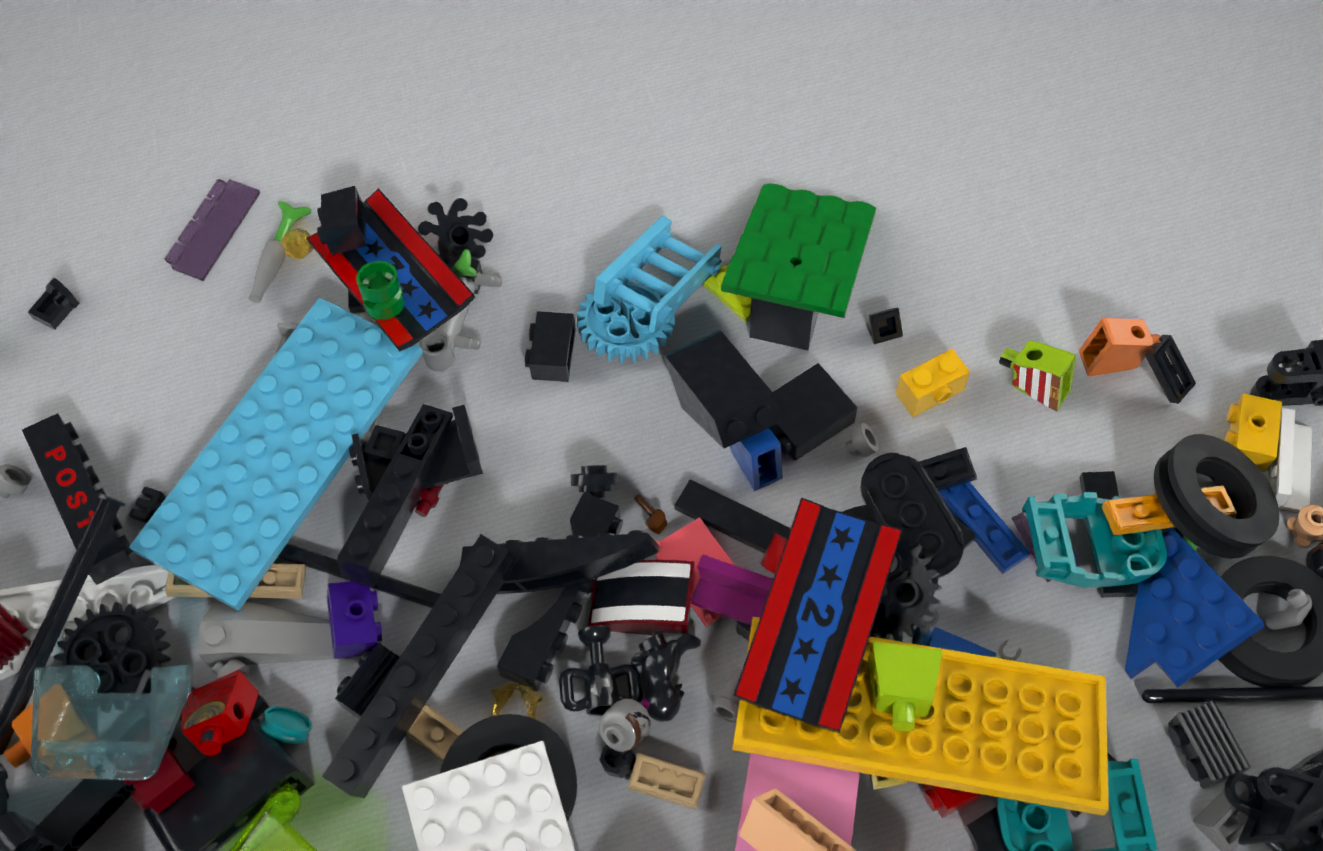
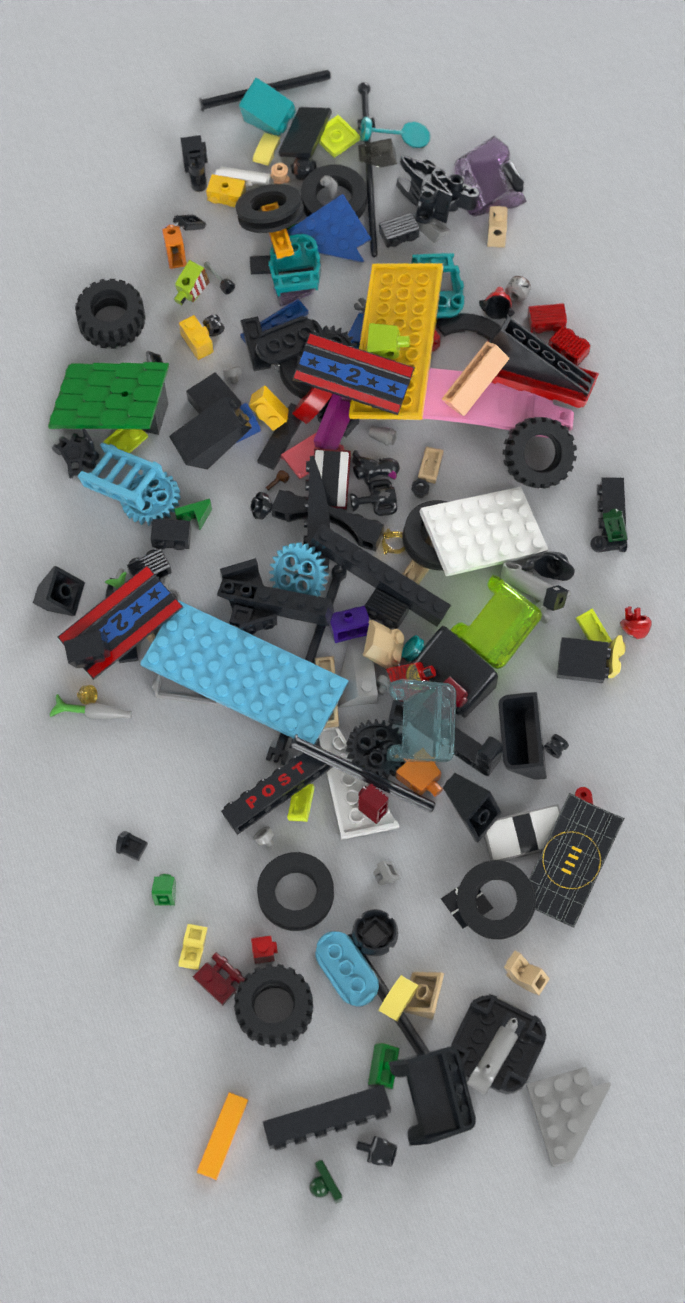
camera: 95 degrees left, 5 degrees up
(45, 535) = (301, 804): none -> neon yellow plate
(217, 226) = (69, 753): clear purple windscreen -> none
(297, 672) = (383, 645): none -> tan slope
(380, 290) = (146, 614): green wheel -> none
(449, 532) = (302, 556): none -> medium azure gear
(454, 230) = (85, 594): black animal -> none
(477, 190) = (59, 592): none -> black slope
(498, 319) = (155, 560): none -> black brick
(590, 388) = (198, 511): none -> green slope
(625, 725) = (404, 478): light grey head -> none
(709, 213) = (75, 450): none -> black piece
(779, 488) = (268, 408): none -> yellow brick
(960, 411) = (213, 325): none -> black wheel
(975, 224) = (107, 294): none -> black tyre
(1048, 433) = (226, 285): none -> black hinge

